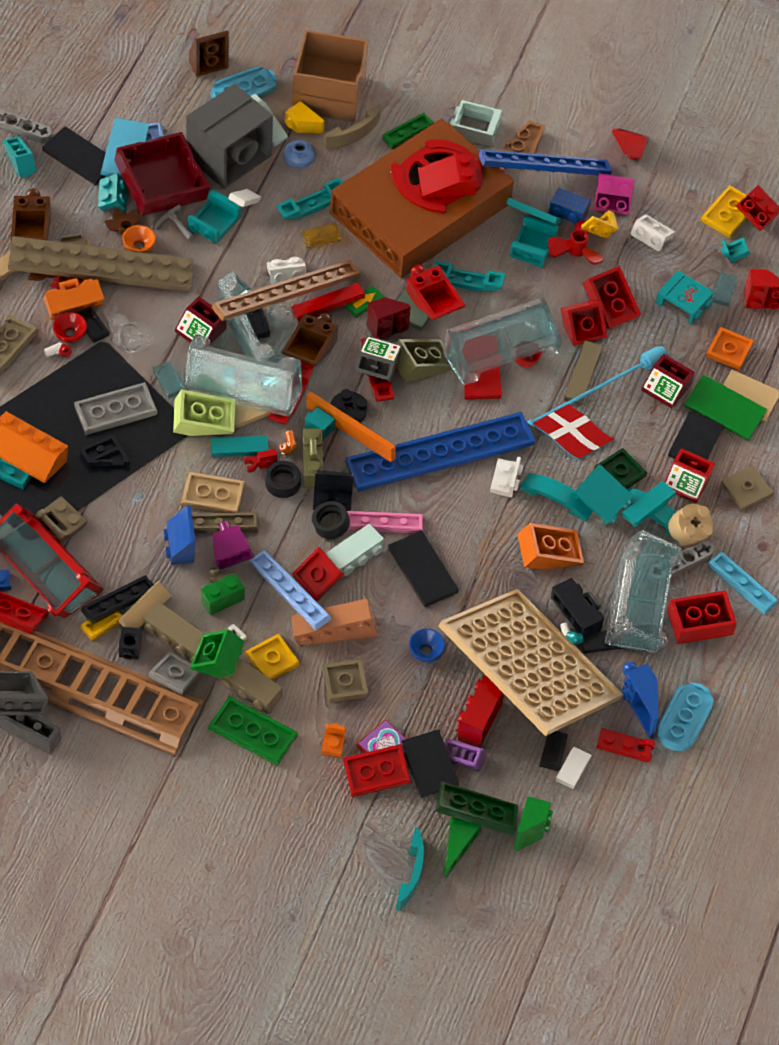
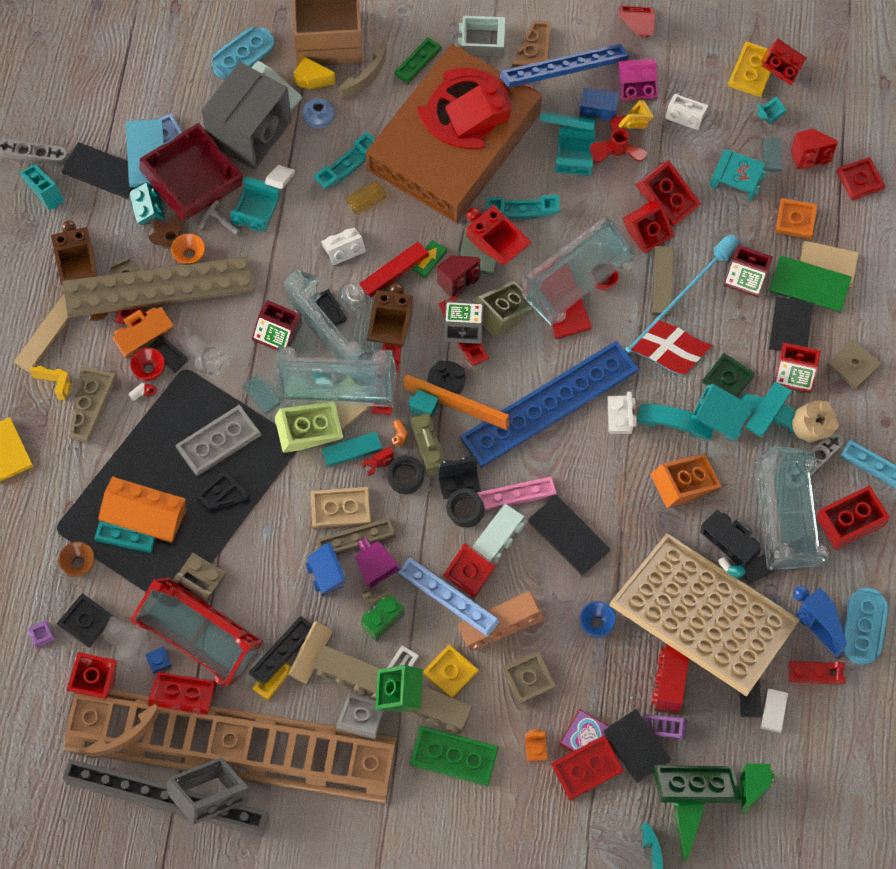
camera: 10 degrees left, 10 degrees up
(132, 636) = (304, 687): black brick -> none
(210, 53) = (200, 28): reddish brown slope -> none
(285, 290) = (352, 273): medium nougat plate -> none

